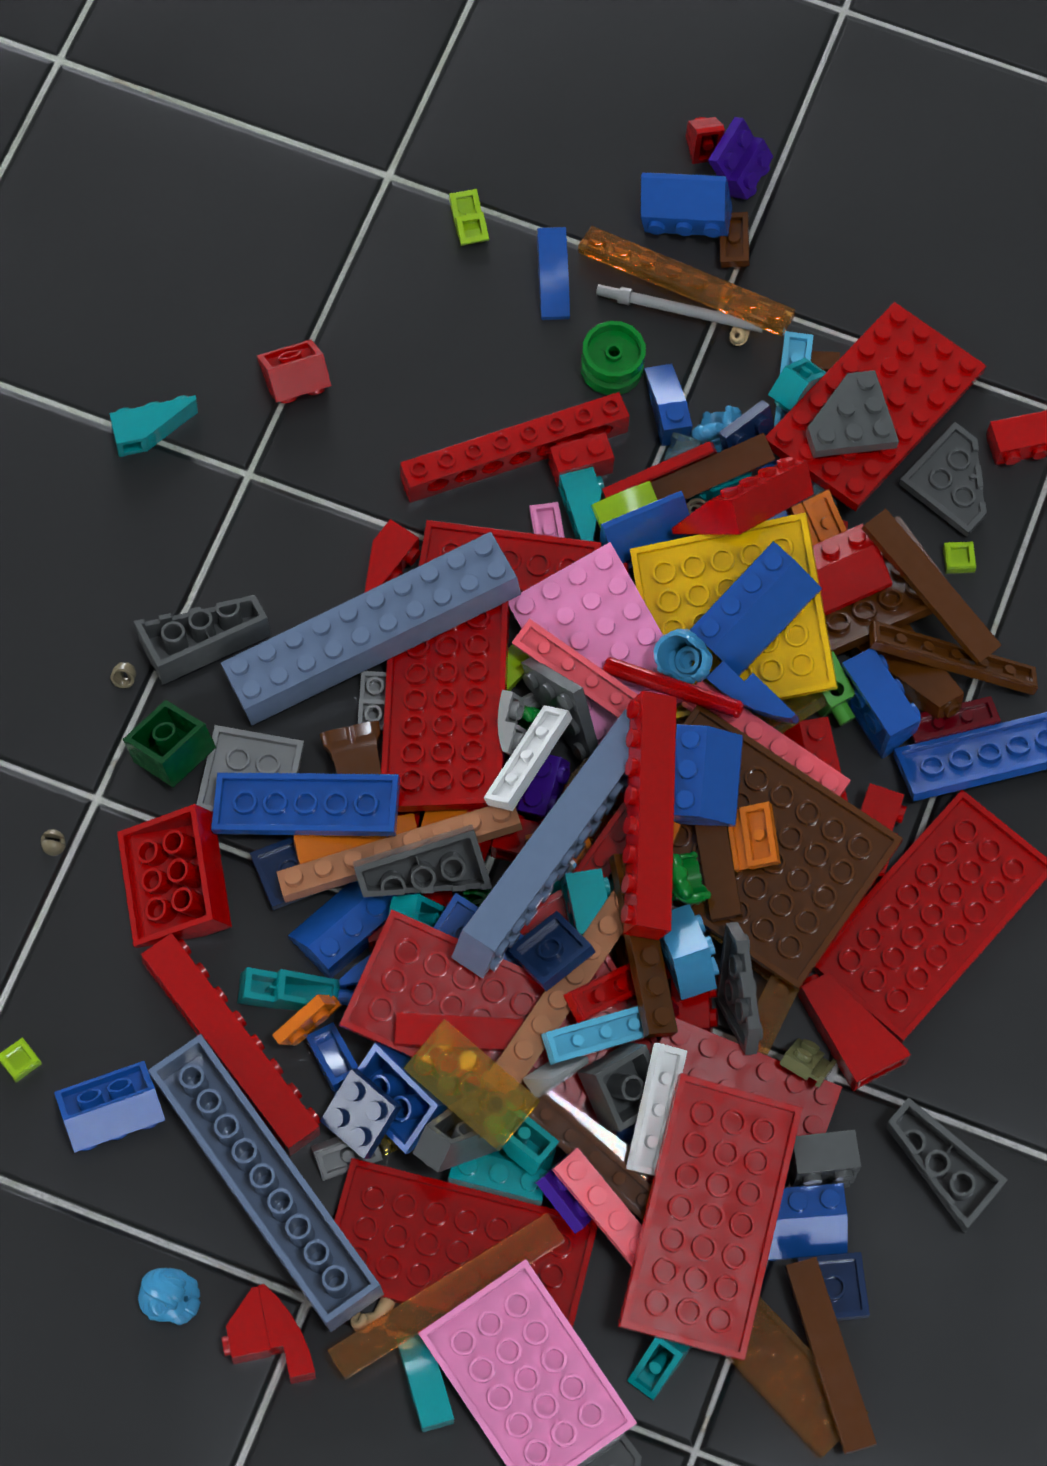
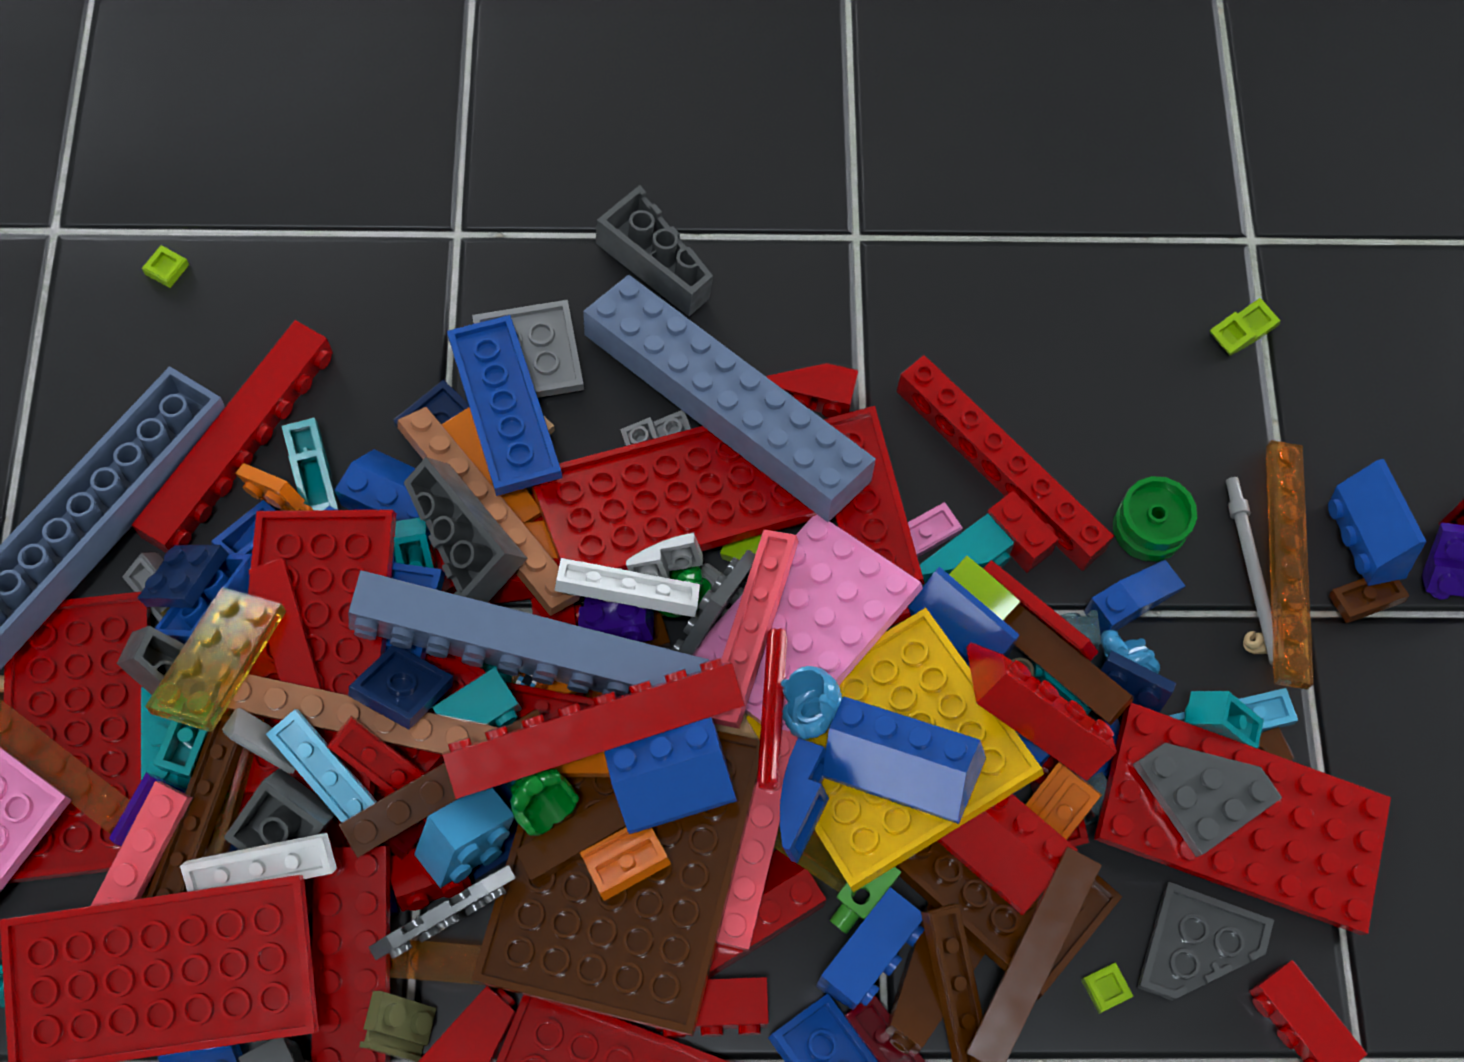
camera: 70 degrees right, 0 degrees up
(50, 846) = (396, 221): dark tan hinge -> none
(109, 1106) = (131, 349): slope -> none
(117, 675) = (591, 206): dark tan hinge -> none
(145, 426) = (860, 129): teal slope -> none
(169, 743) = (525, 263): dark green brick -> none
(174, 877) = (393, 326): red slope -> none
(294, 371) = (983, 231): red slope -> none
(354, 748) = (584, 430): reddish brown piece -> none
(553, 273) = (1224, 427): blue slope -> none

